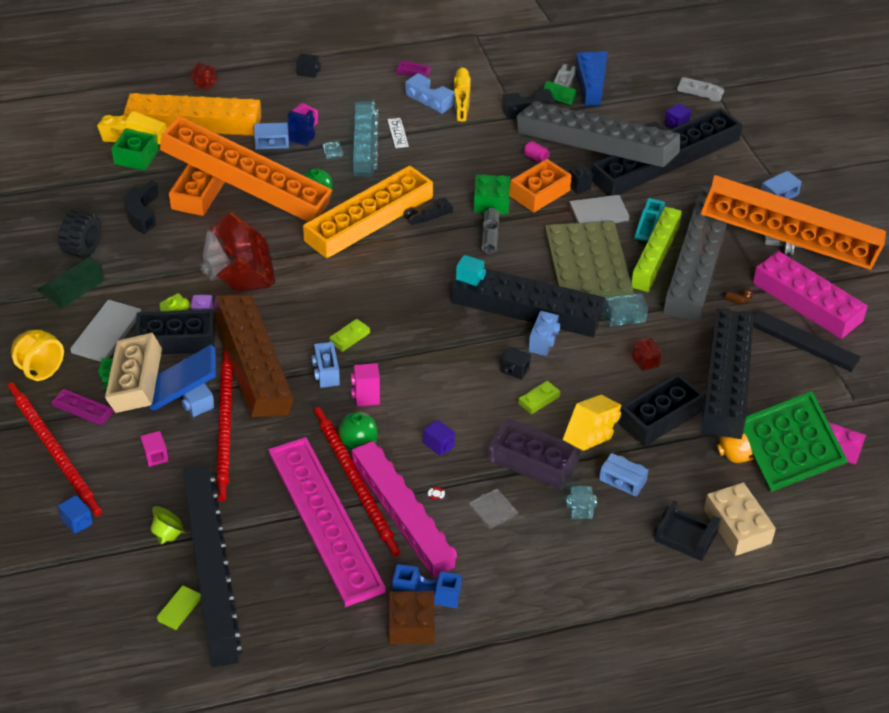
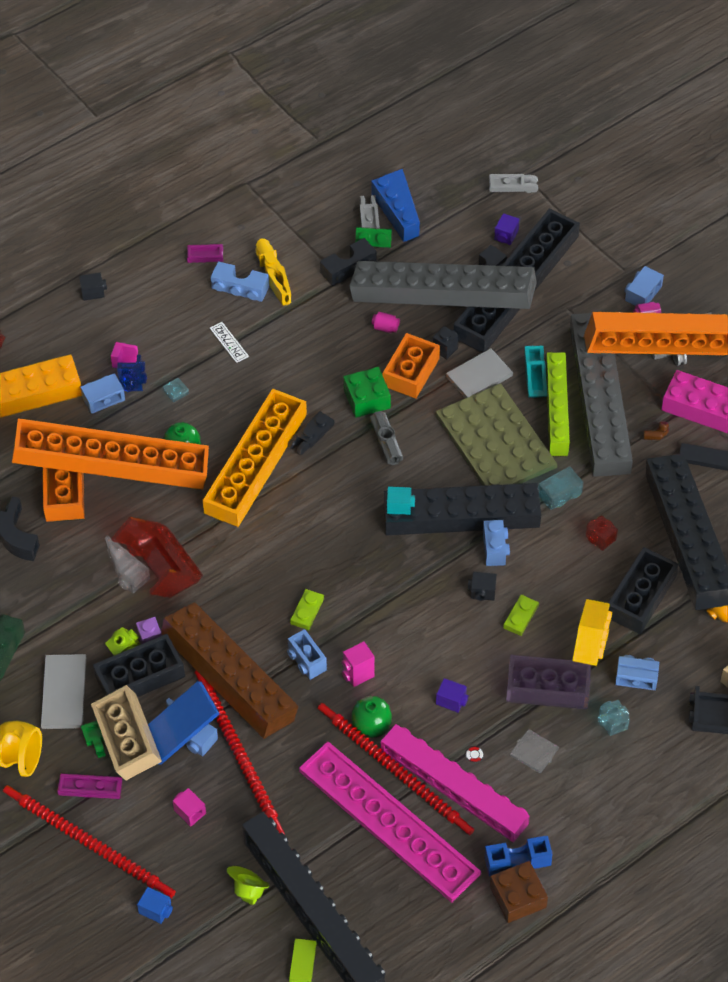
camera: 20 degrees left, 10 degrees up
(365, 139) = (202, 365): clear light blue brick -> none

